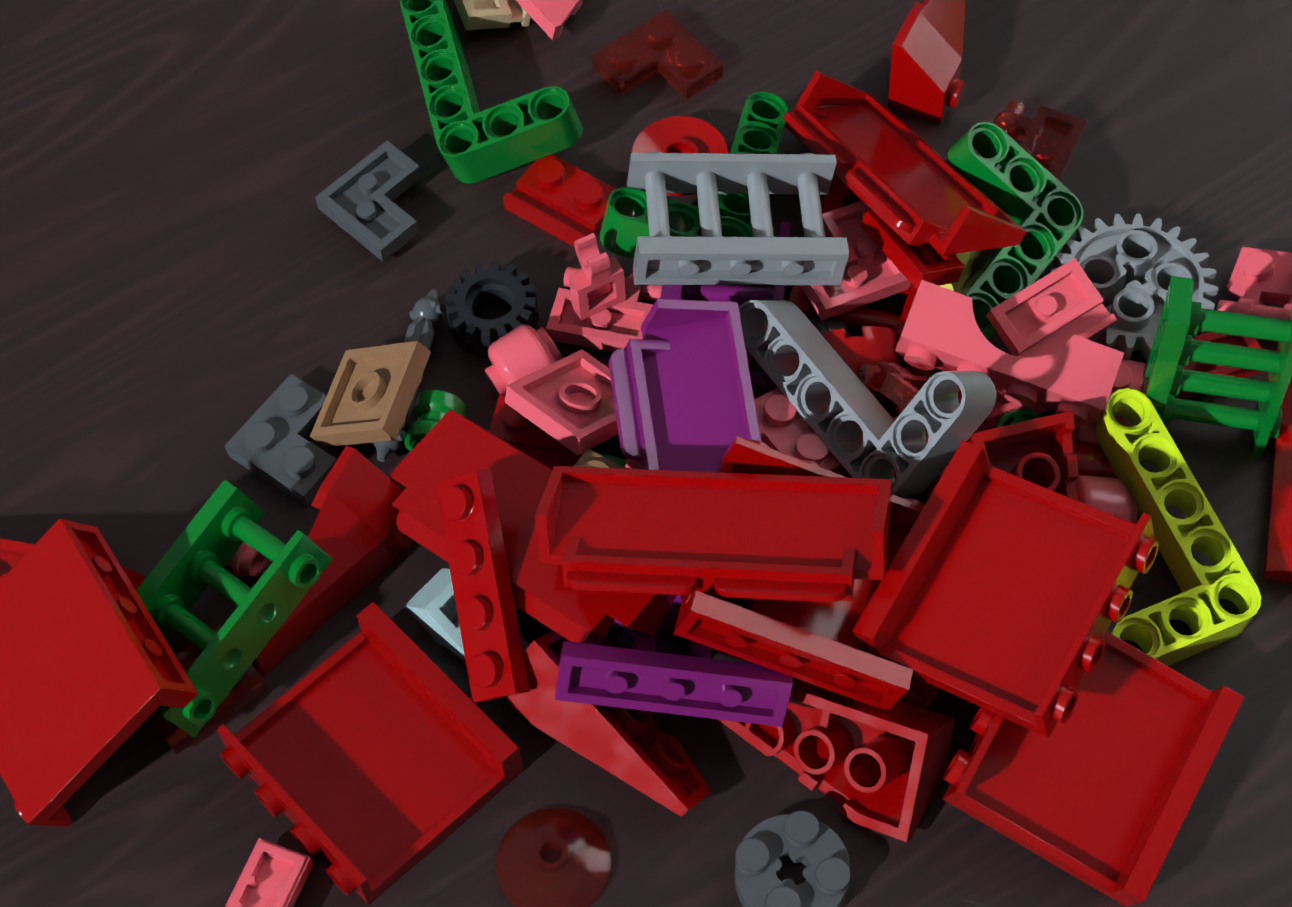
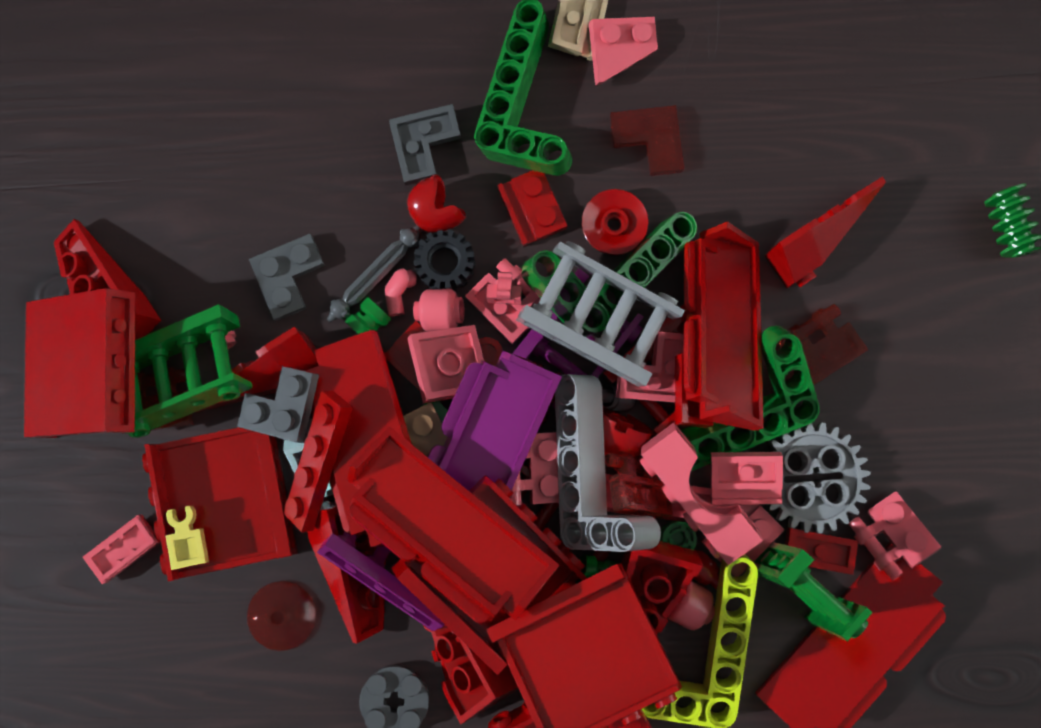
camera: 30 degrees right, 25 degrees up
(354, 825) = (187, 545): none -> light yellow plate
(370, 394) = (340, 282): medium nougat plate -> none
(401, 562) = (287, 413): none -> dark grey plate
(437, 260) = (427, 206): none -> red helmet
(447, 372) = (395, 288): none -> coral arm

